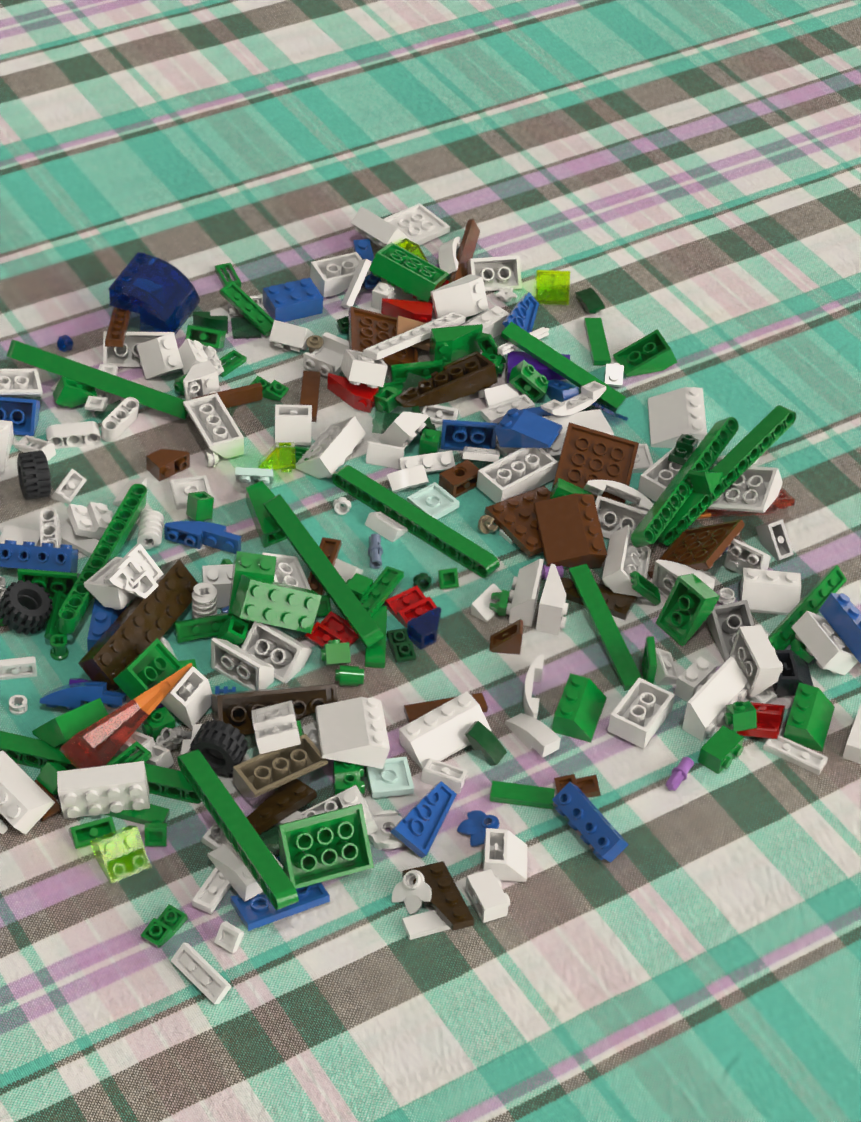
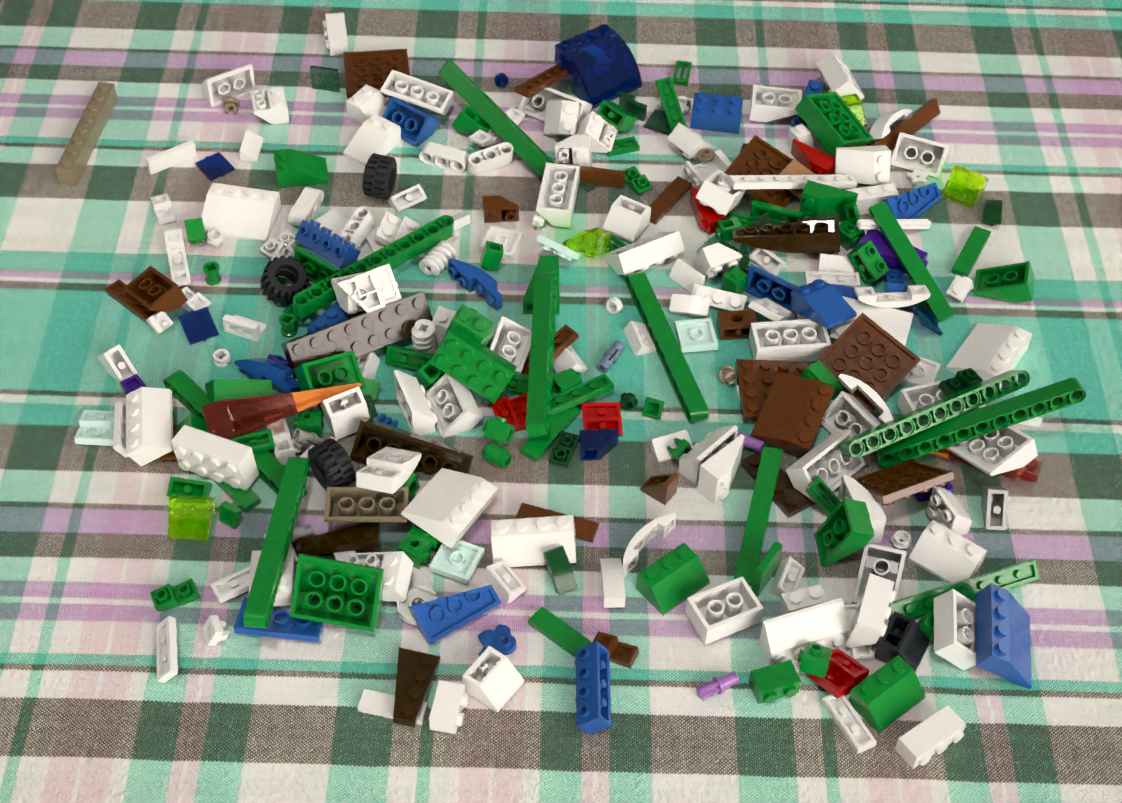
camera: 35 degrees right, 5 degrees up
(35, 445) = (409, 157): white slope -> none
(356, 283) = (785, 111): white tile -> none
(412, 894) = (389, 669): white plate -> none
(418, 224) = (883, 87): white plate -> none
(705, 480) = (951, 419): green slope -> none

